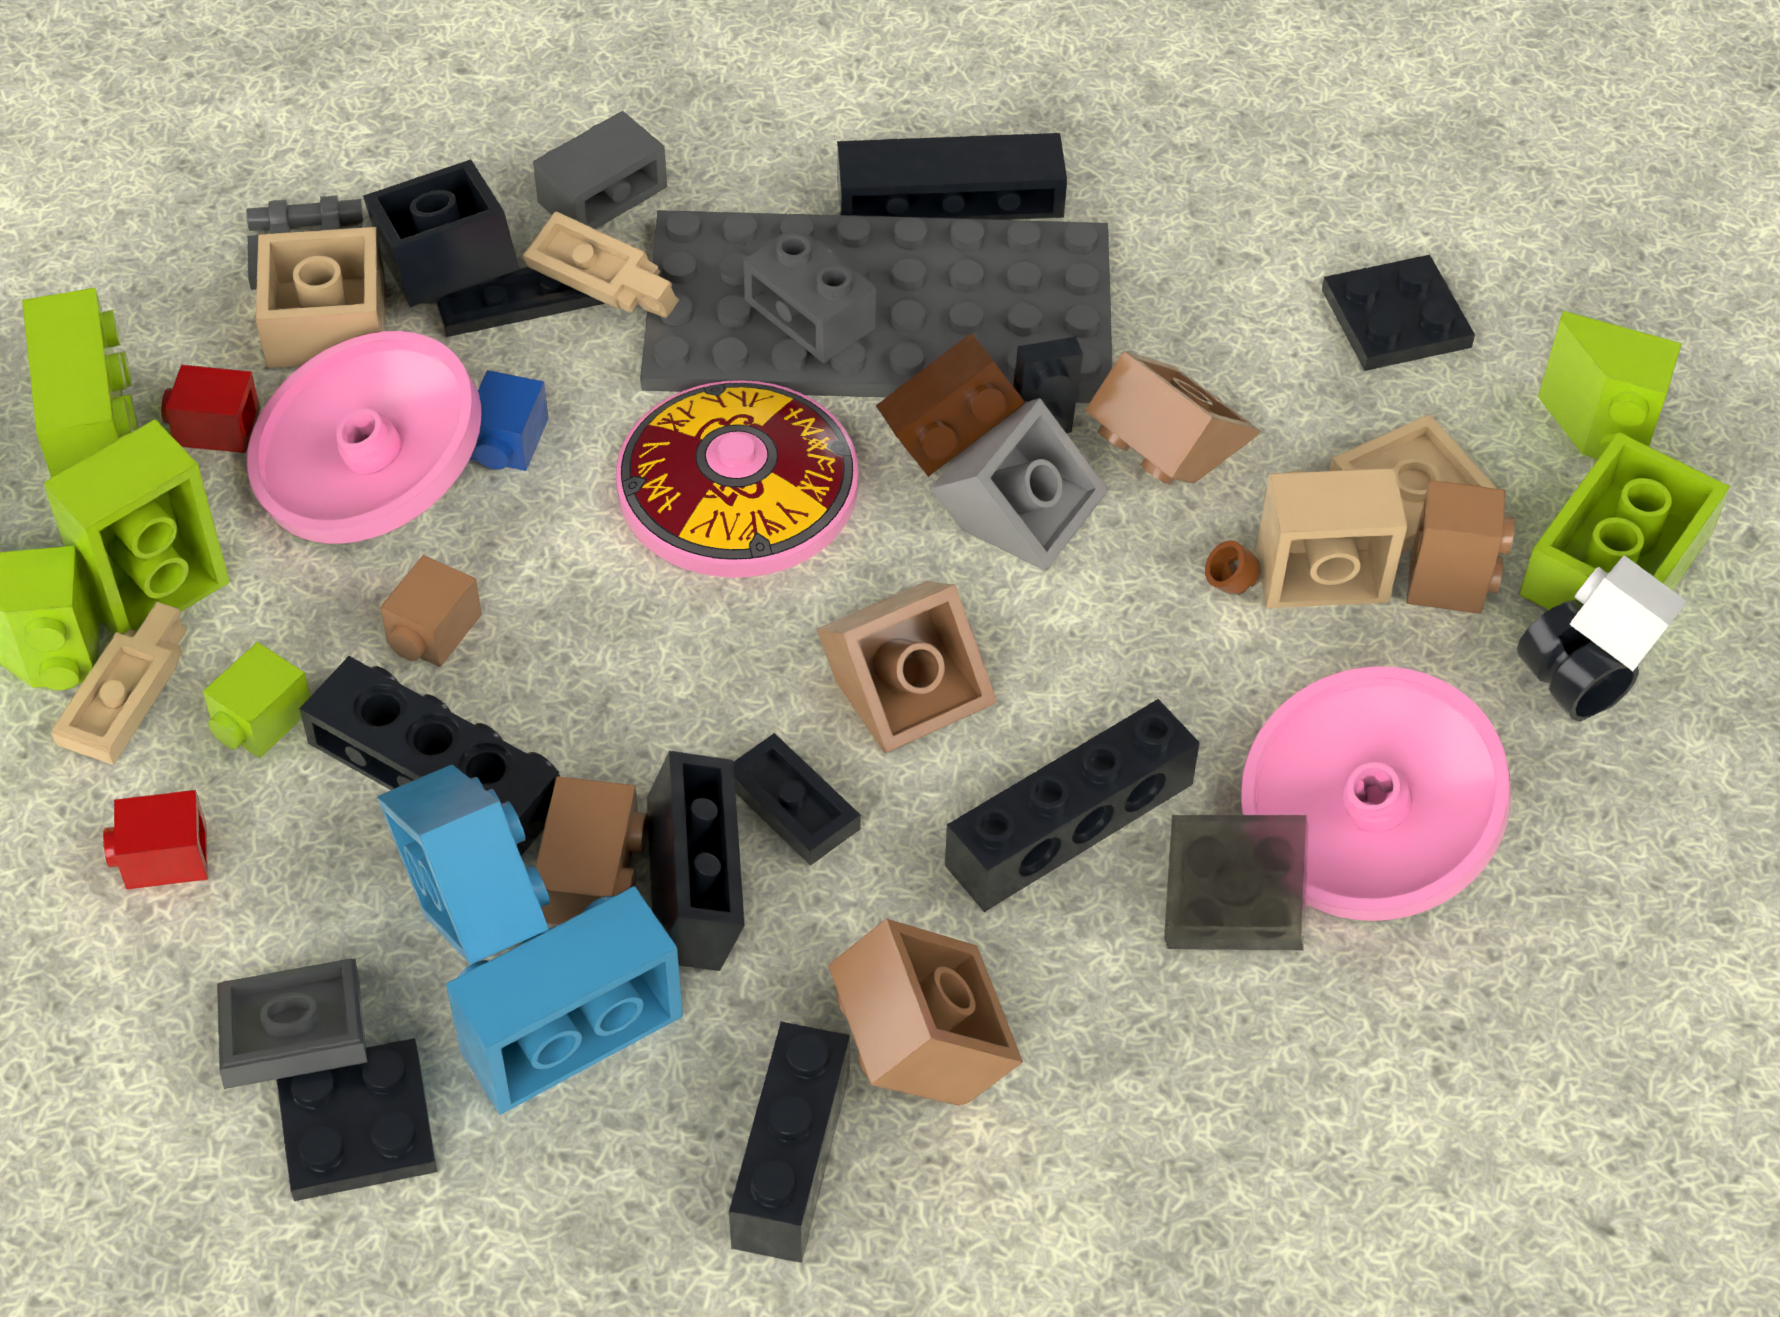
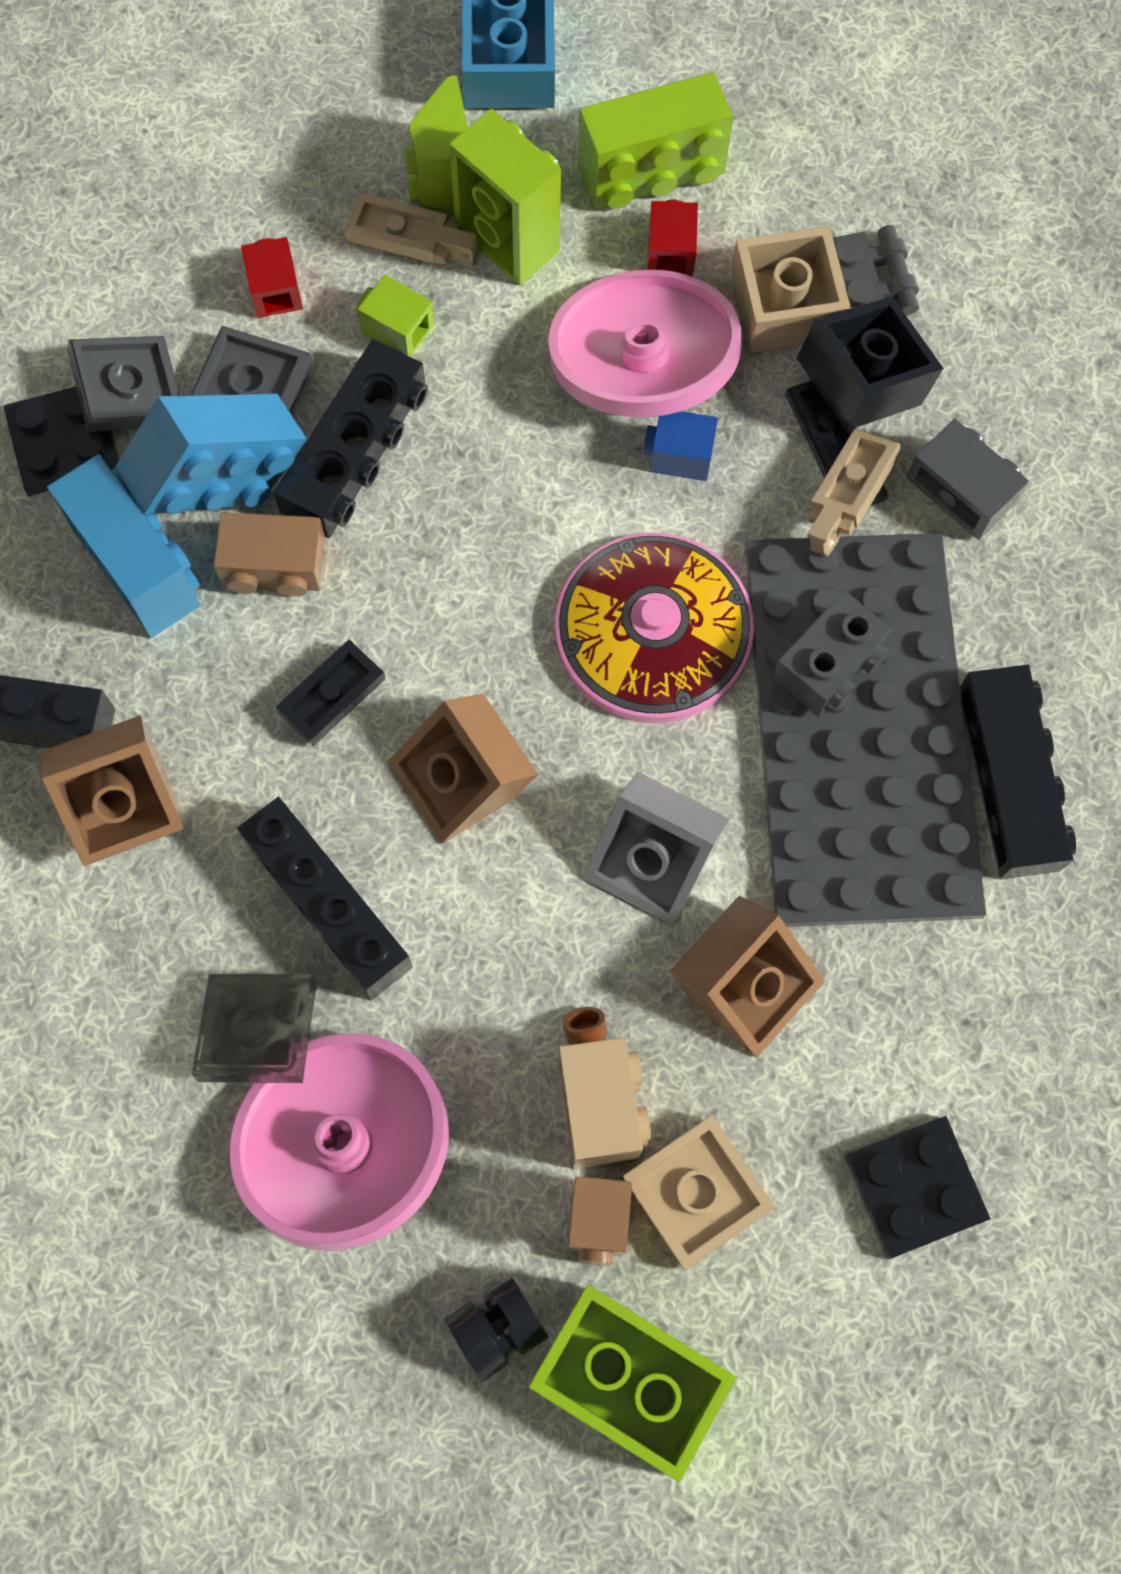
camera: 85 degrees right, 20 degrees up
(317, 879) = (253, 365): none -> dark grey plate
(430, 611) = (485, 417): medium nougat brick -> none
(696, 857) = (254, 622): black brick -> none
(949, 404) = (719, 777): reddish brown brick -> none
(1050, 373) = (743, 856): black plate -> none
(1606, 381) = (806, 1381): lime slope -> none
(1625, 611) = (510, 1364): white brick -> none

